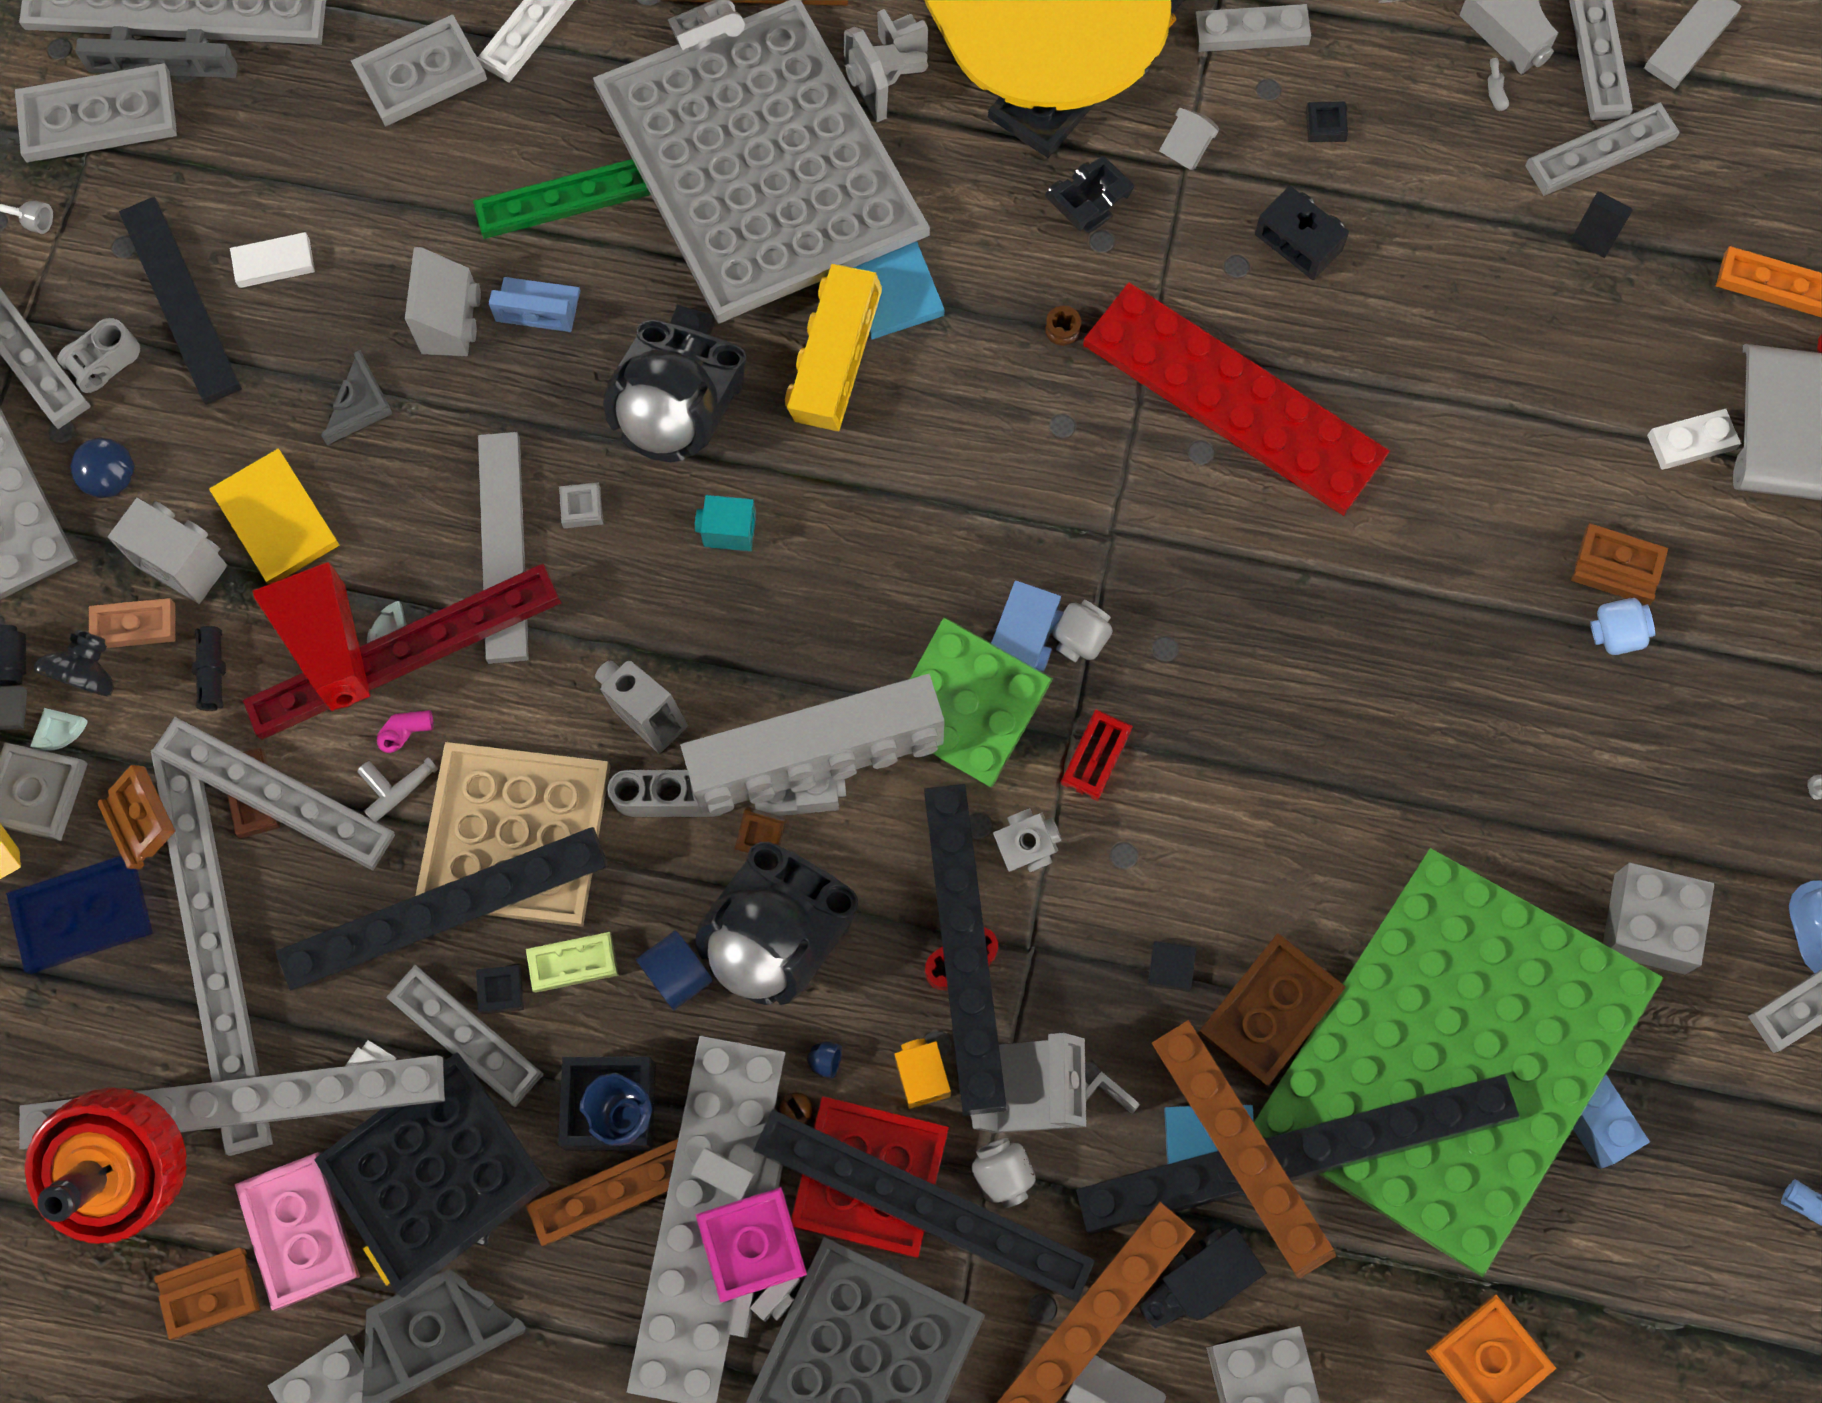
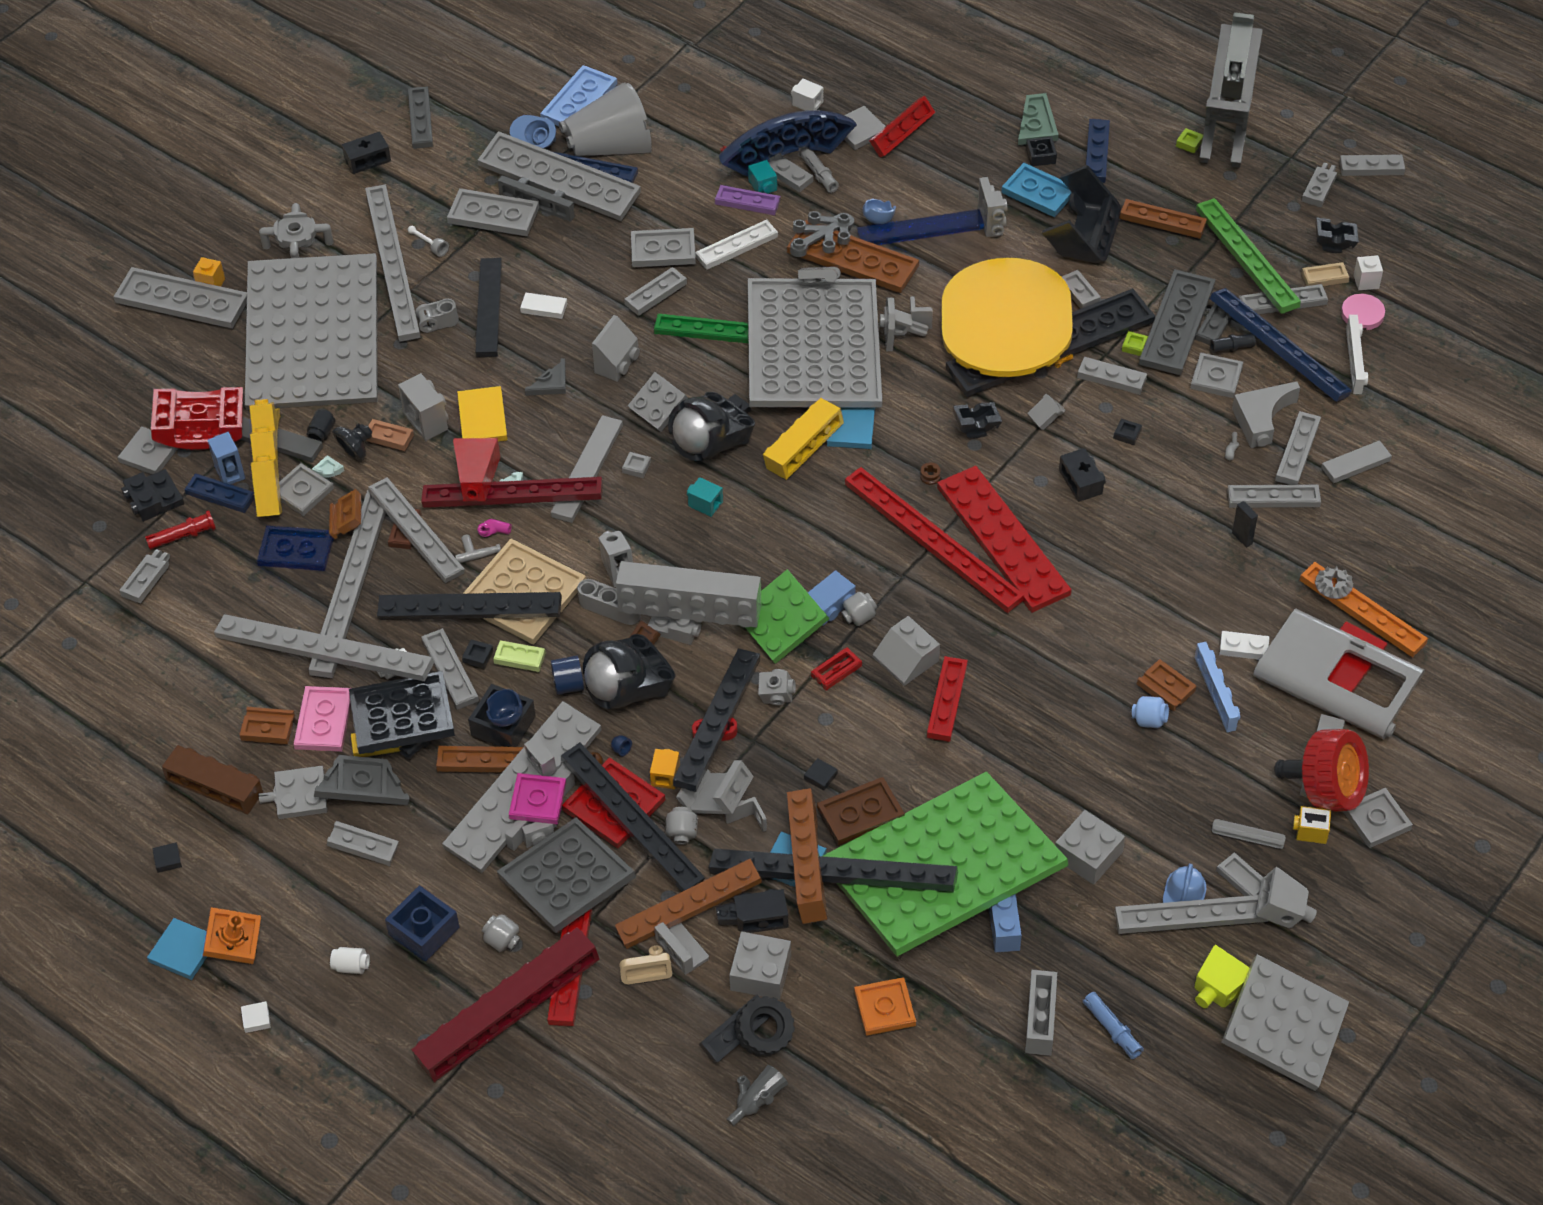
camera: 25 degrees right, 20 degrees down
(102, 467) = (410, 363): dark blue hair -> none
(105, 1165) = (252, 646): red wheel -> none
(208, 668) = (414, 467): black pin -> none
(448, 159) = (655, 291): none -> light grey plate
(535, 304) = (665, 368): medium blue panel -> none
(560, 373) = (656, 401): none -> light grey plate
(1131, 448) = (934, 540): none -> red plate
(1195, 678) = (907, 651): none -> light grey slope
(1301, 738) = (947, 699): none -> red plate
(1696, 535) = (1215, 682): none -> light blue plate
(1743, 1265) = (1041, 1012): none -> light grey brick
(1775, 286) = (1324, 583): none -> light grey gear

